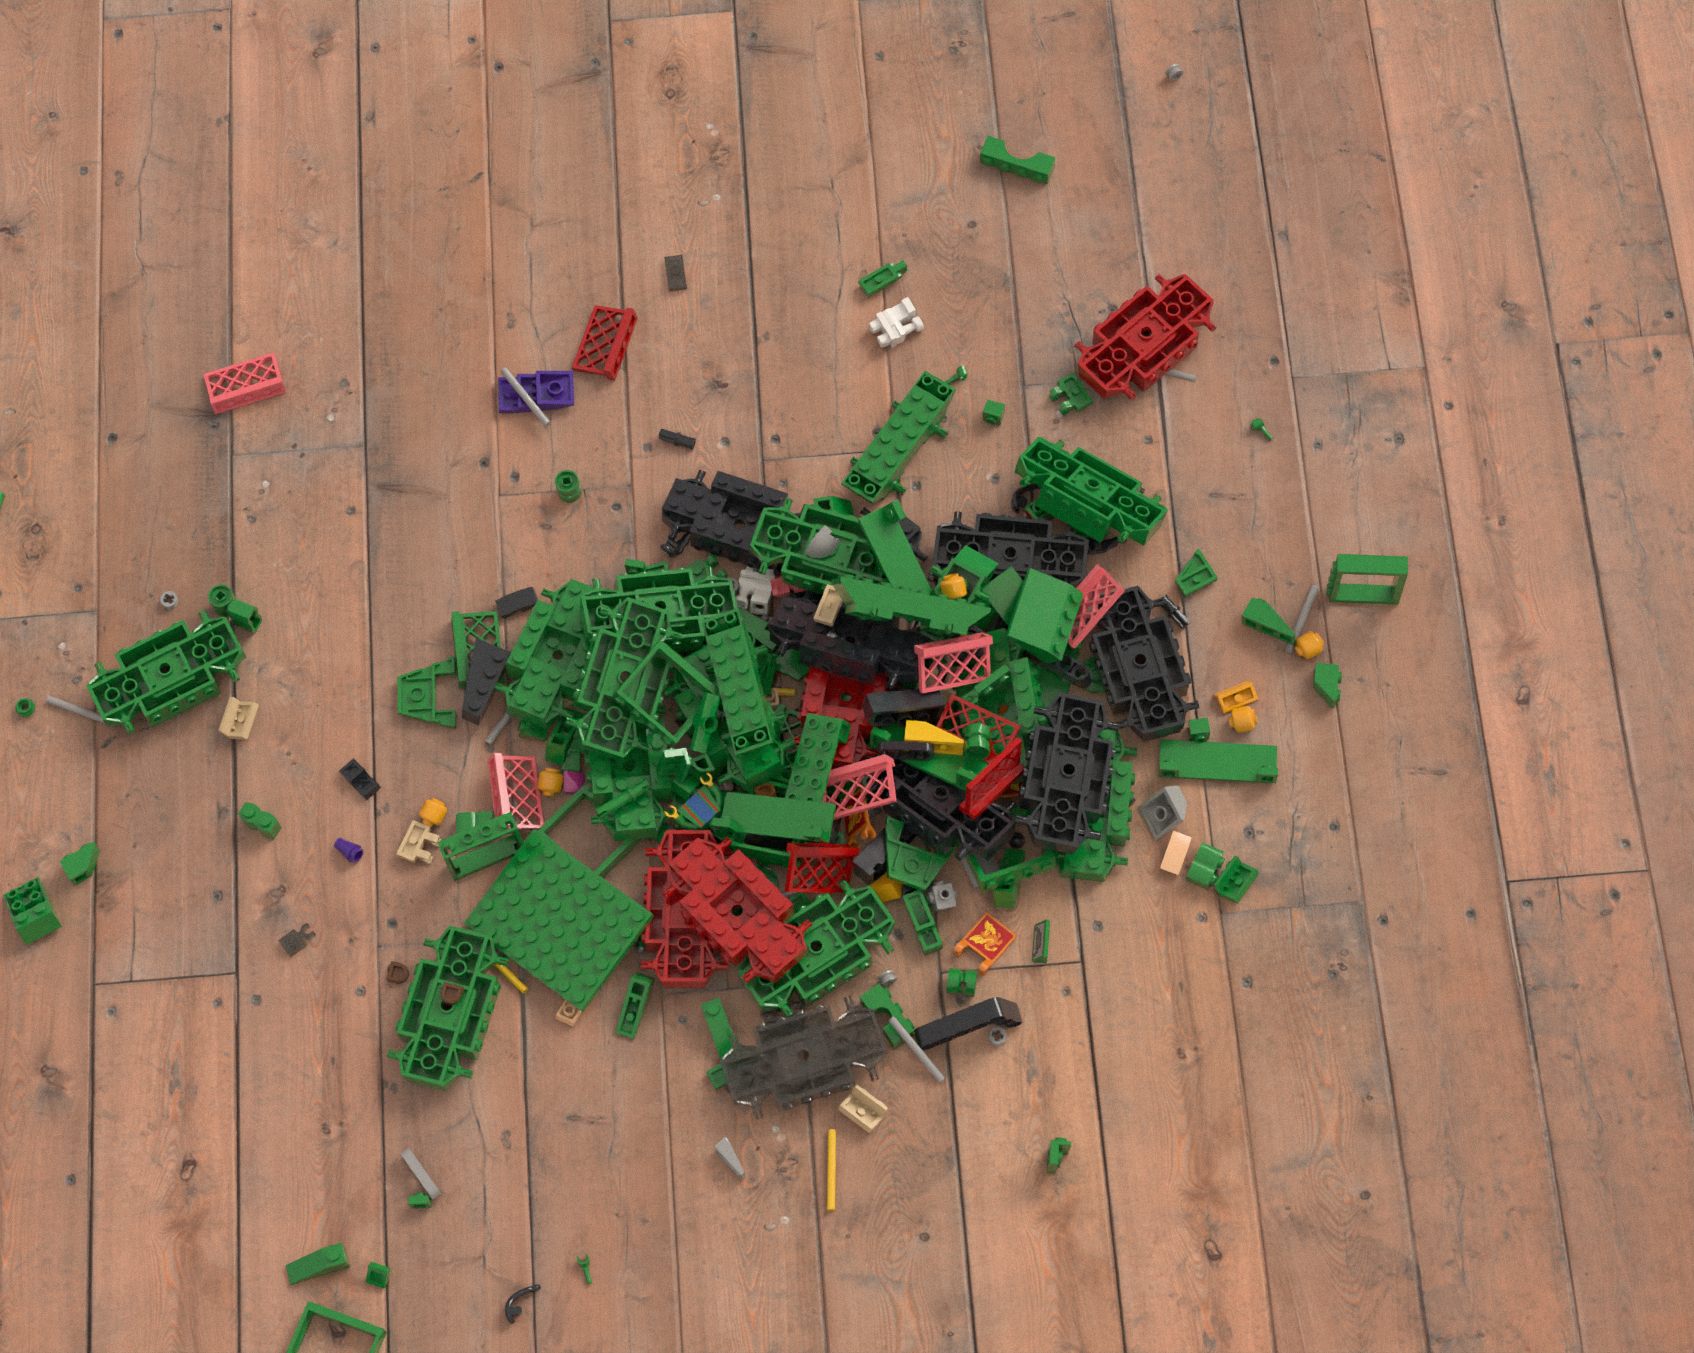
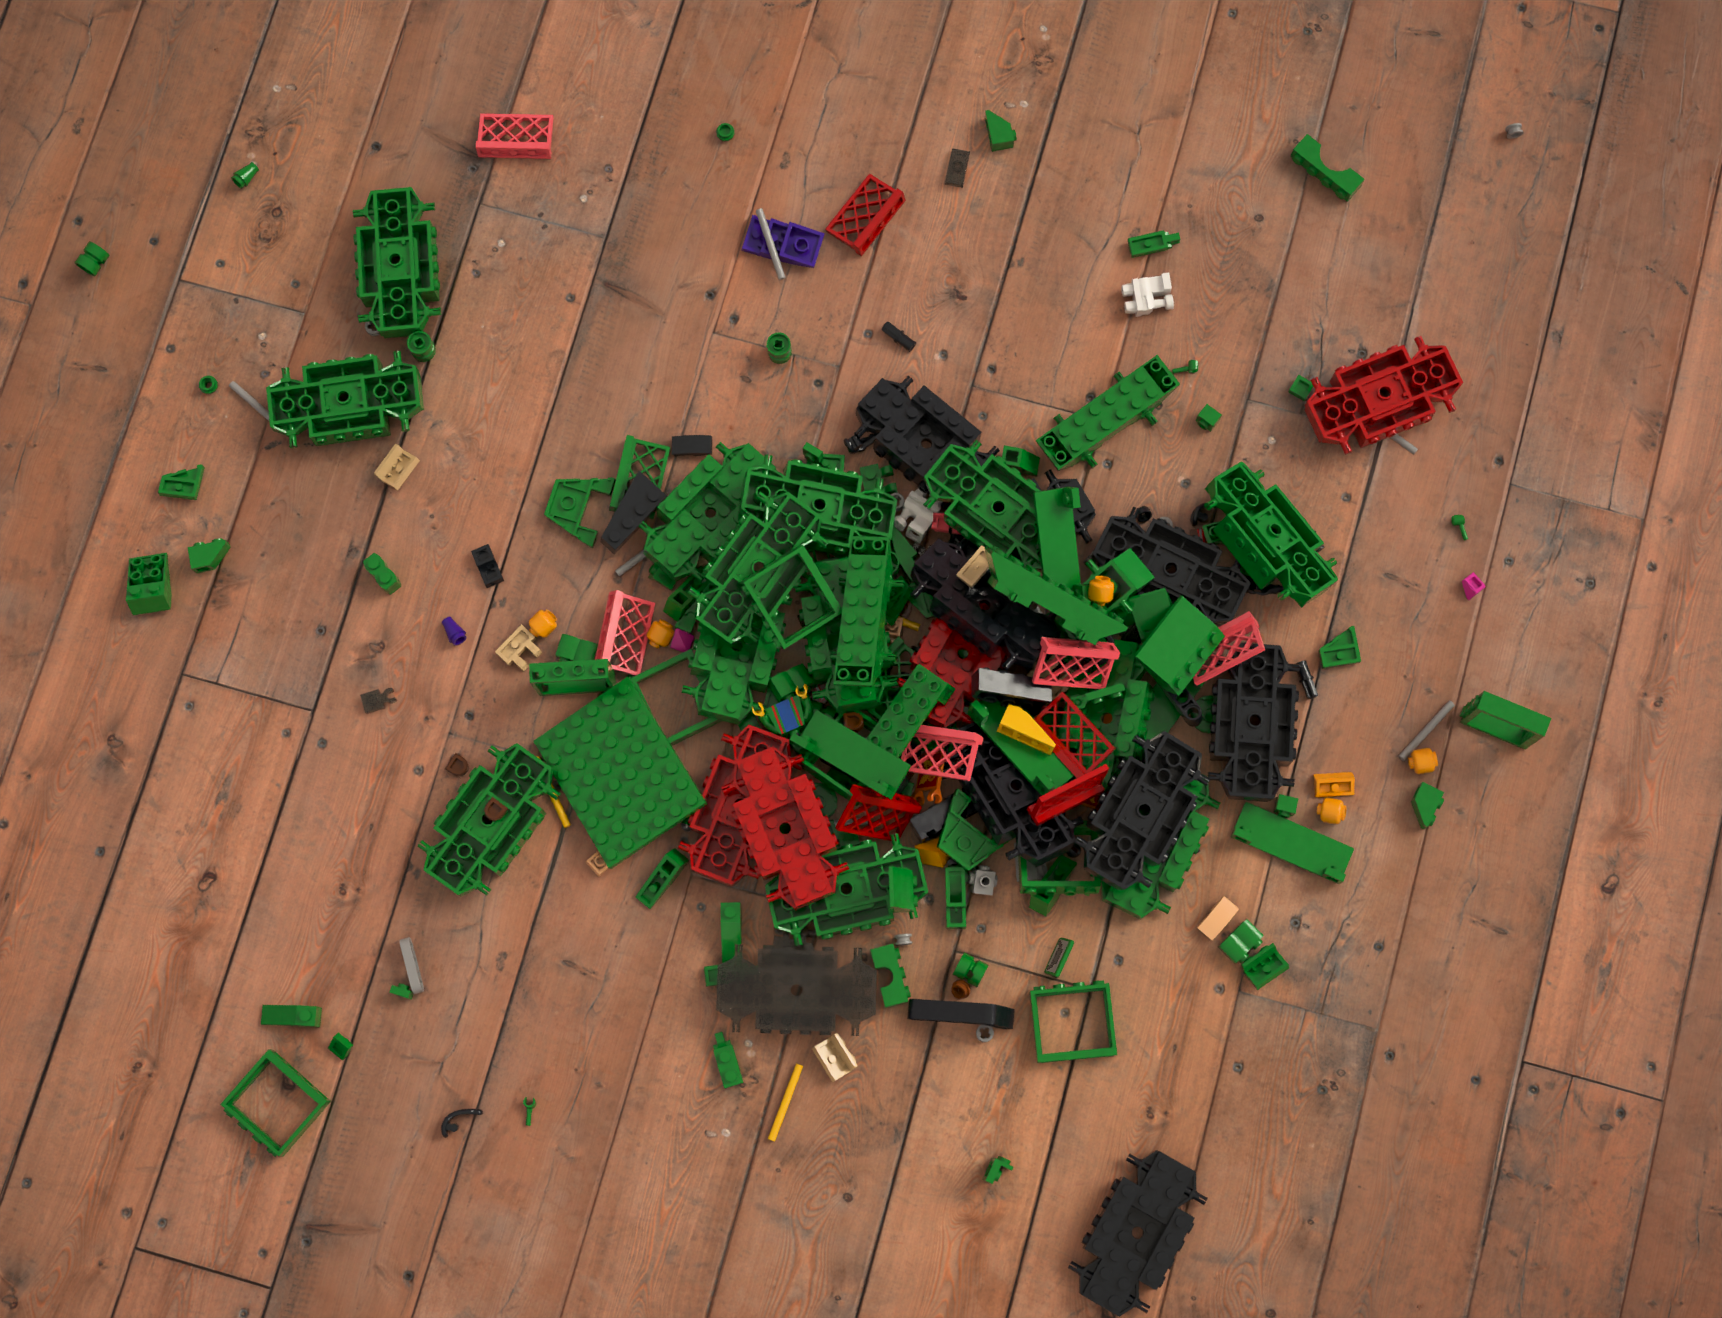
camera: 20 degrees right, 10 degrees up
(31, 807) = (182, 483): none -> green wing
(177, 558) = (397, 289): none -> green piece
(244, 615) = (435, 369): green brick -> none
(444, 313) = (725, 132): none -> green plate
(629, 795) = (717, 681): green pin -> none
(674, 762) = (778, 665): green bracket -> none
(702, 764) = (802, 674): green brick -> none
(703, 228) = (999, 132): none -> green slope
(703, 729) = (818, 639): green piece -> none
(727, 1154) = (695, 1052): light grey slope -> none
(761, 1152) = (727, 1062): none -> green hinge
(822, 544) = (993, 501): light grey brick -> none
(868, 924) = (901, 890): none -> green slope
(916, 750) = (997, 733): black beam -> none
(916, 1049) = (904, 1019): light grey bar -> none
(954, 1004) = (960, 989): none -> dark orange plate
(970, 517) = (1145, 517): none -> black hinge
(977, 741) = (1067, 750): green wheel -> none
(987, 939) = (1010, 935): flag -> none
(1068, 357) = (1301, 388): none -> green plate
(1074, 391) = (1294, 426): green plate -> none
(1092, 1023) = (1079, 987): none -> green window
(1164, 810) = (1223, 874): light grey slope -> none
(1216, 1135) = (1152, 1206): none -> black piece
(1264, 618) = (1390, 719): green slope -> none
(1293, 477) = (1472, 585): none -> dark pink slope

